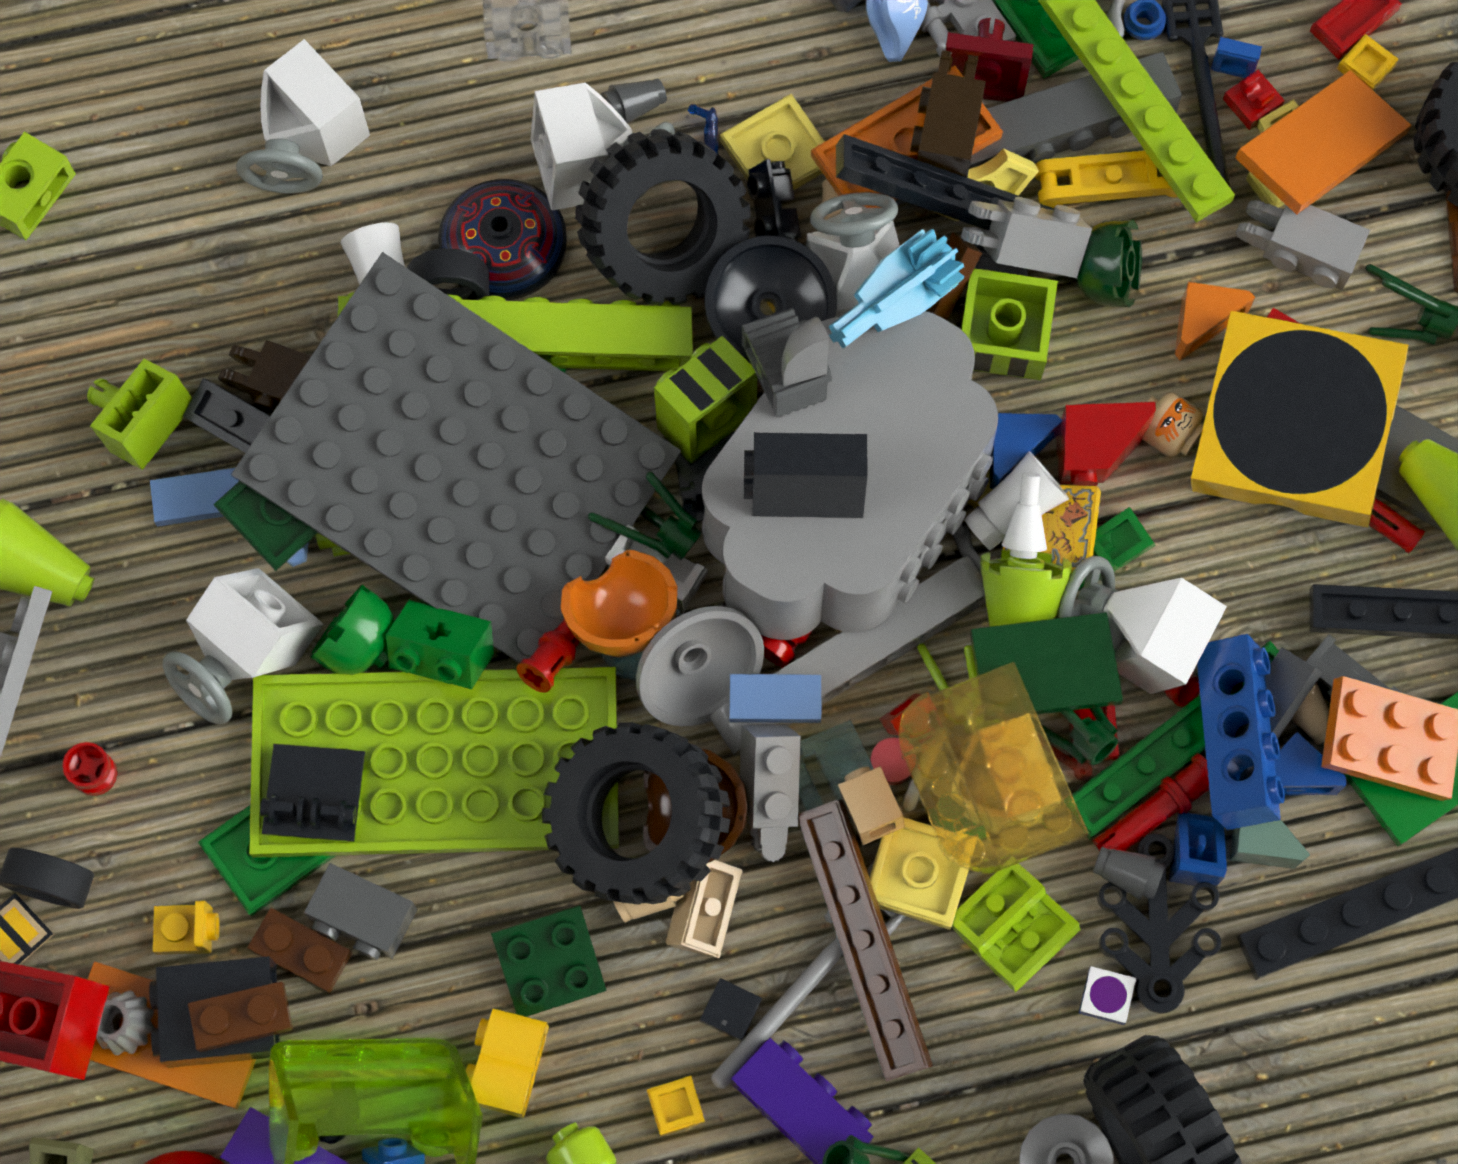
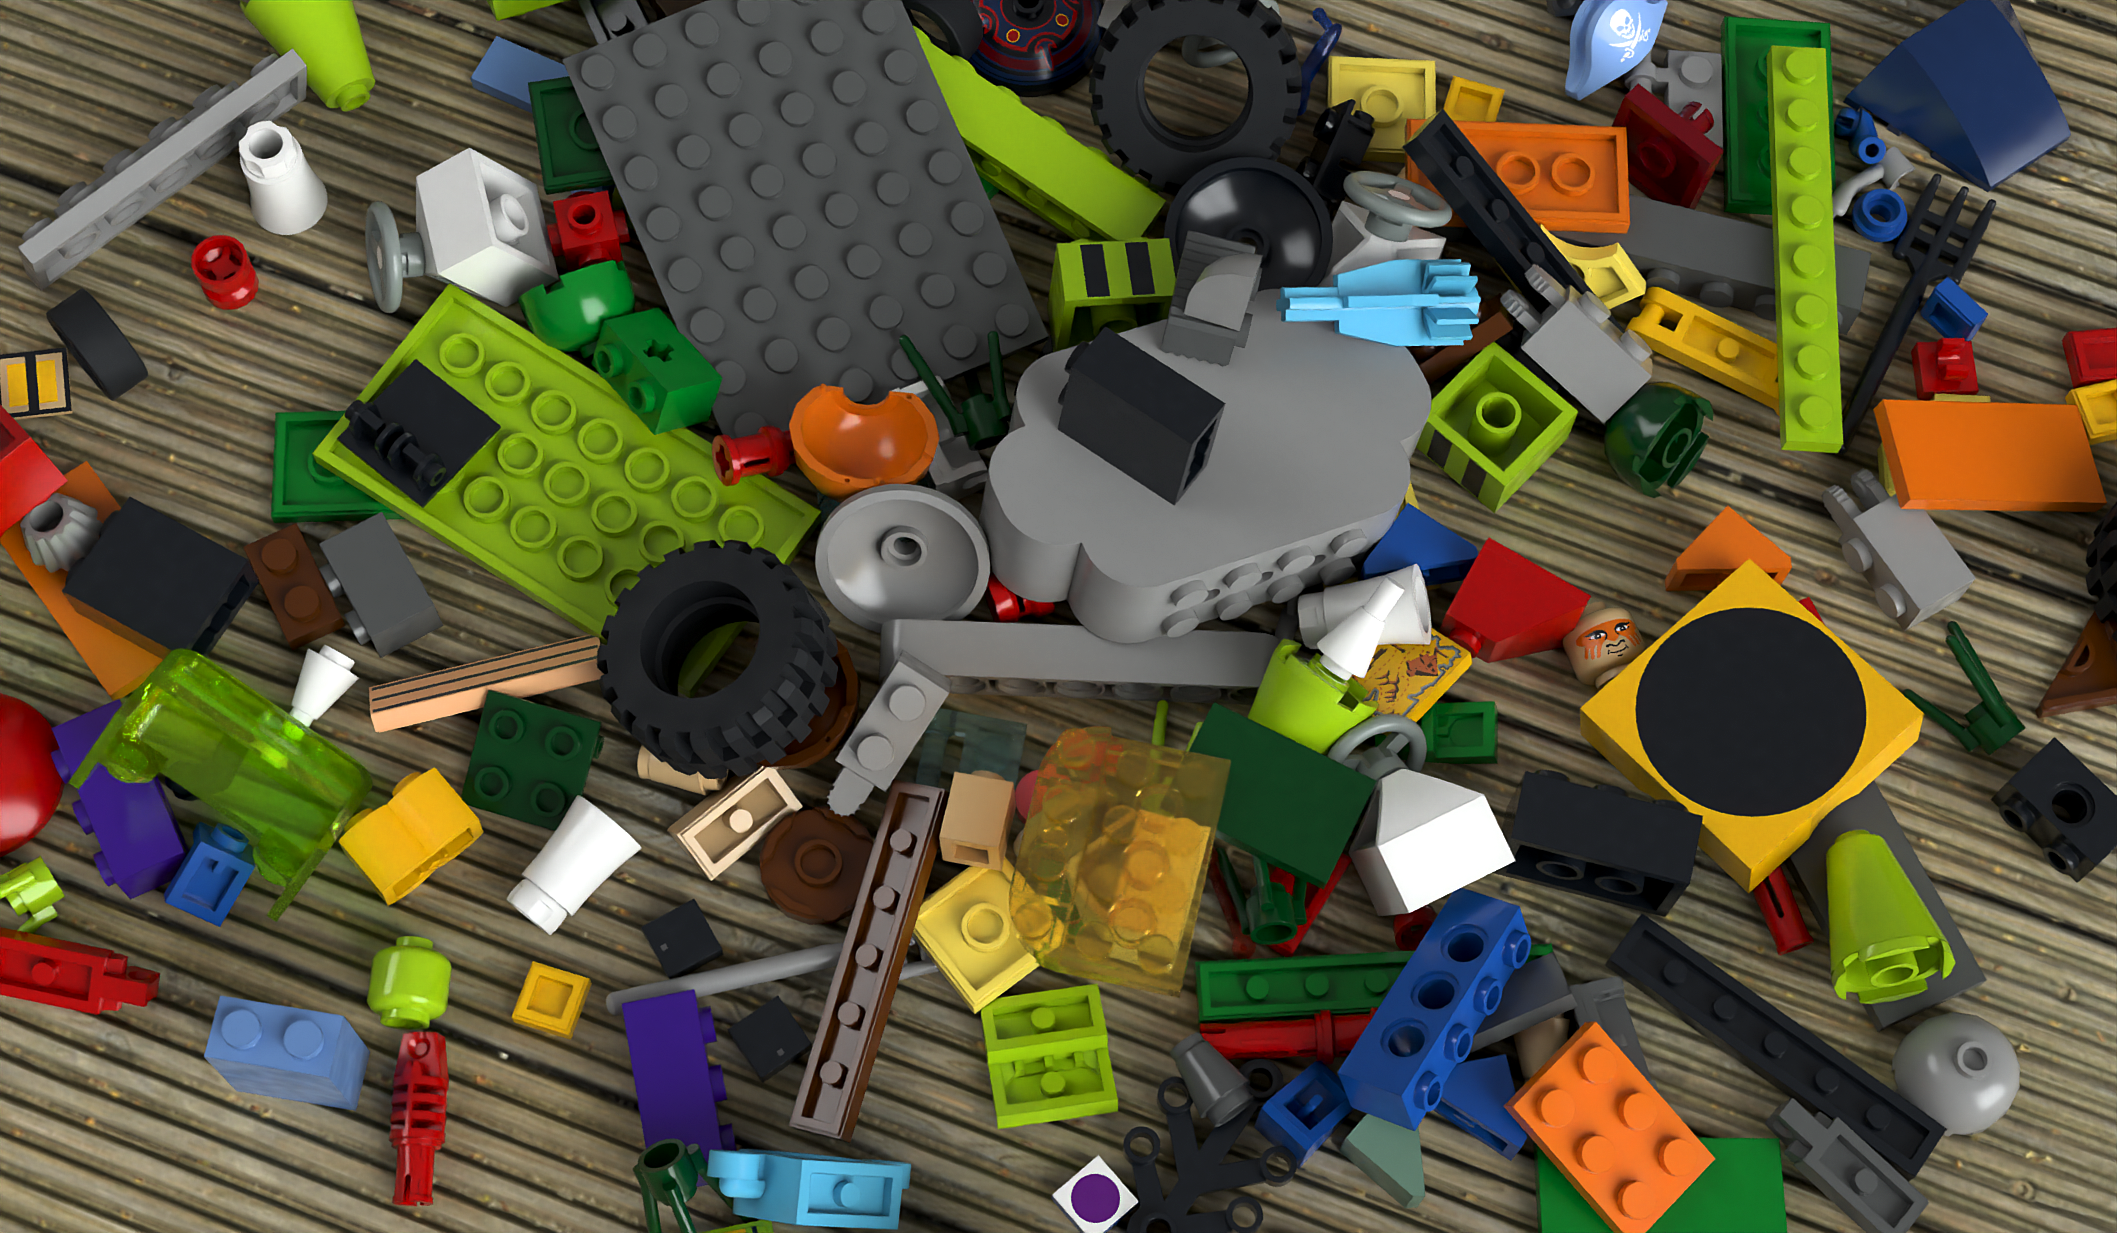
camera: 30 degrees right, 5 degrees down
(84, 683) = (281, 184): none -> white plant
(185, 929) = (198, 489): yellow bracket -> none
(240, 1016) = (171, 597): reddish brown plate -> none
(326, 592) = (587, 230): none -> red brick
(370, 1004) = (321, 683): none -> white cone
(472, 934) = (467, 685): none -> light nougat tile
(627, 1011) = (571, 865): none -> white plant
(775, 698) = (958, 645): medium blue tile -> none
(780, 902) = (815, 865): none -> reddish brown tile
(833, 1034) = (770, 1039): none -> black tile
(835, 111) = (1472, 101): none -> yellow tile
(941, 1110) = (811, 1187): none -> medium azure piece
(951, 117) = (1578, 169): dark brown hinge -> none
(1263, 554) = (1600, 842): none -> black brick

